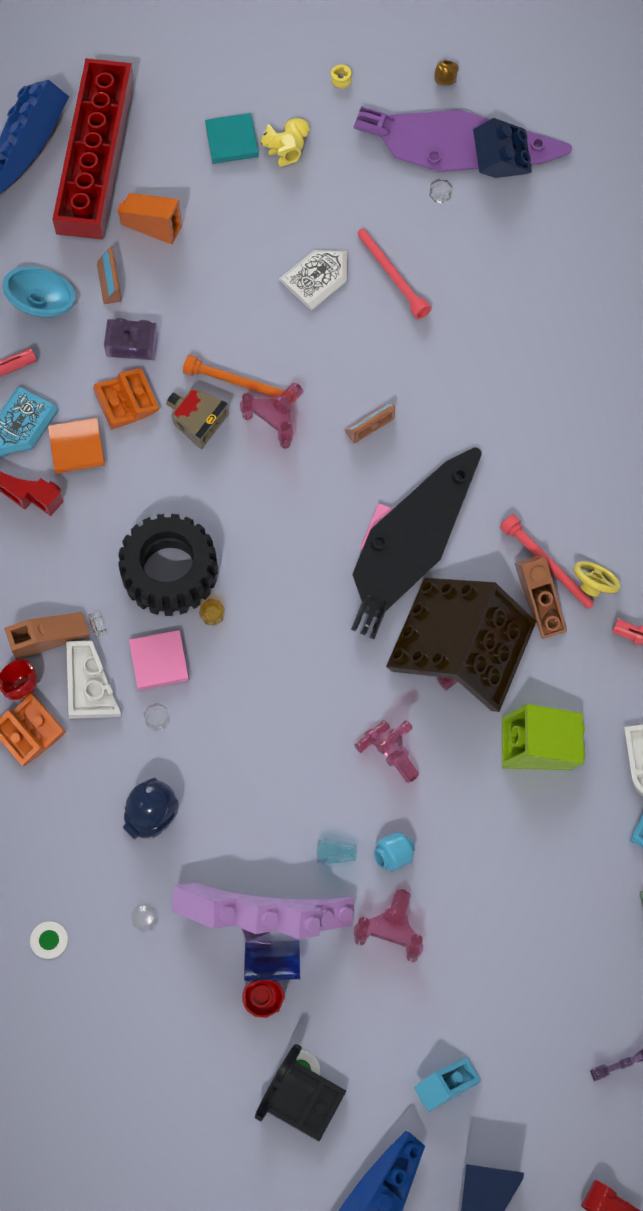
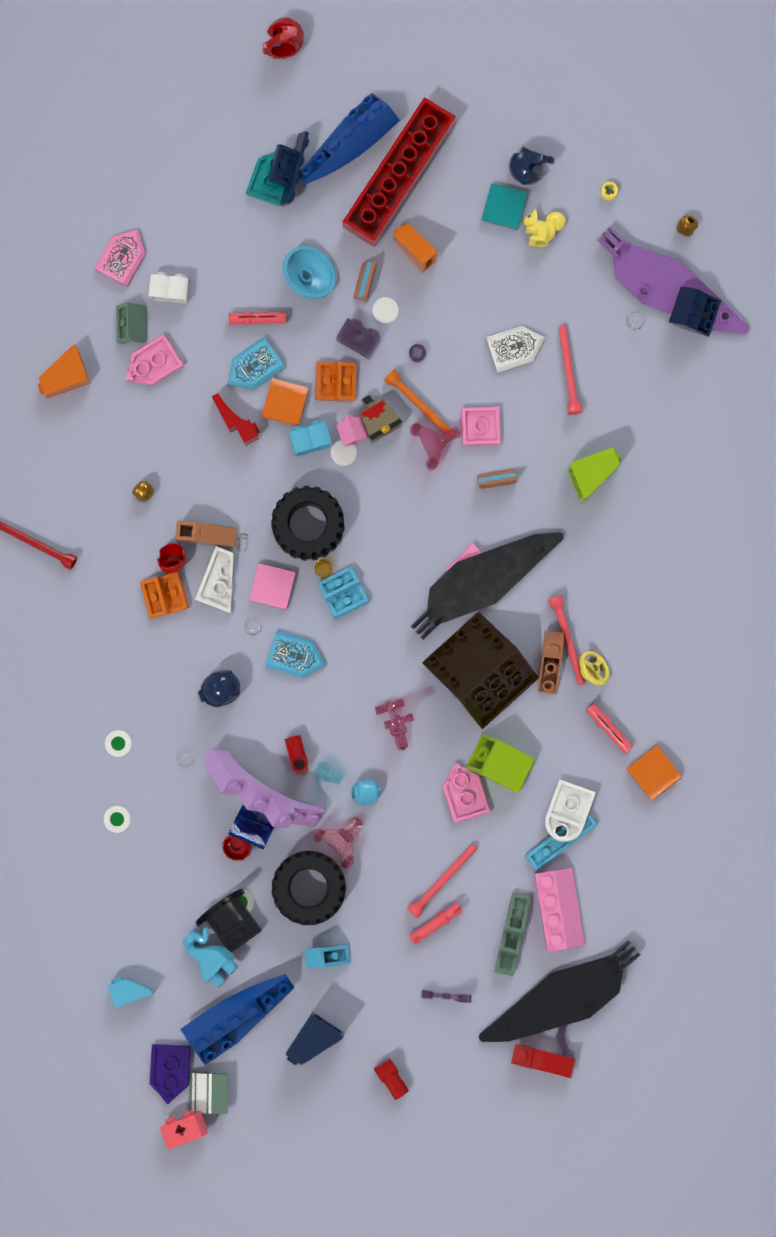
camera: 25 degrees right, 15 degrees up
(89, 1037) = (116, 819): none -> white sticker
(125, 471) = (310, 438): none -> medium azure brick
(148, 300) = (385, 310): none -> white sticker
(172, 440) = (352, 430): none -> bright pink brick
(173, 473) = (343, 455): none -> white sticker
(207, 320) = (423, 353): none -> clear purple bush
(224, 730) = (294, 655): none -> medium azure tile
(233, 81) = (523, 162): none -> dark blue helmet
(249, 629) = (343, 592): none -> medium azure slope
(284, 845) = (296, 752): none -> red piece
(296, 1160) = (210, 958): none -> medium azure hips
(321, 374) = (481, 426): none -> bright pink tile
(389, 967) = (282, 888): none -> black tyre
(477, 361) = (593, 471): none -> lime slope
(518, 799) = (465, 794): none -> bright pink tile
(530, 968) = (417, 907): none -> coral piece
(564, 975) = (437, 922): none -> coral pin

